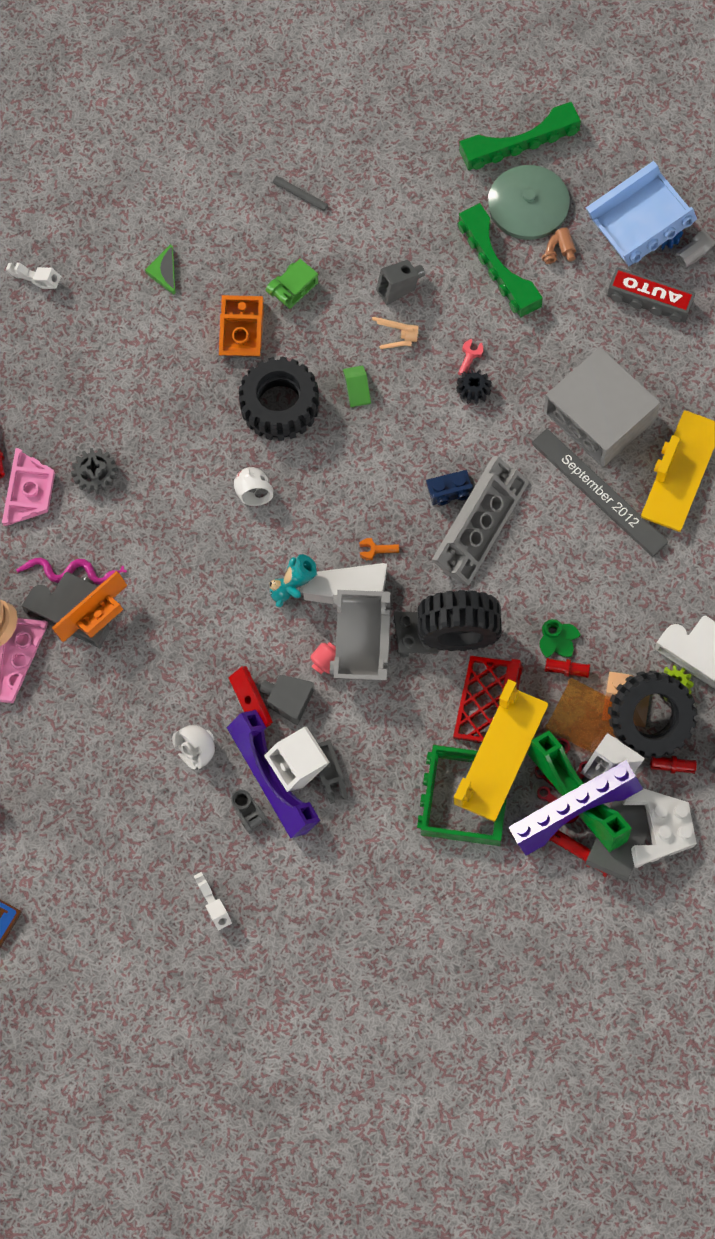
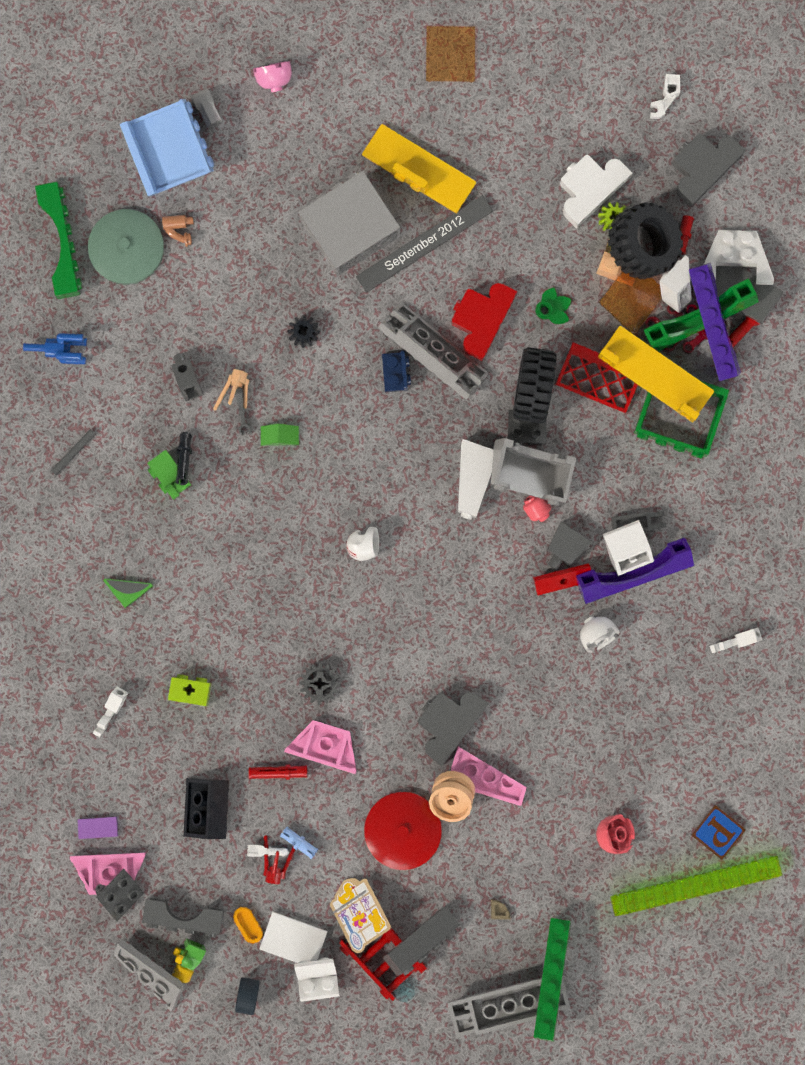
camera: 80 degrees left, 15 degrees up
(62, 355) = (178, 693): none -> lime brick
(70, 568) = (409, 719): dark pink animal -> none
(94, 610) = (464, 700): orange bracket -> none
(241, 325) = (201, 528): orange slope -> none
(249, 814) = (665, 597): dark grey piece -> none
(274, 374) = (265, 487): black tyre -> none
(298, 573) = (462, 514): teal piece -> none
(319, 292) = (183, 451): none -> black pin
(375, 549) = (441, 445): orange bar -> none
(391, 336) = (239, 397): none -> dark grey piece
(405, 158) = (60, 348): none -> blue plant
(470, 355) = (271, 330): coral bar -> none
(520, 292) = (219, 272): green arch -> none
(528, 564) = (482, 317): none -> red brick
(567, 668) = (582, 304): red pin -> none
(651, 295) = (244, 158): brick -> none

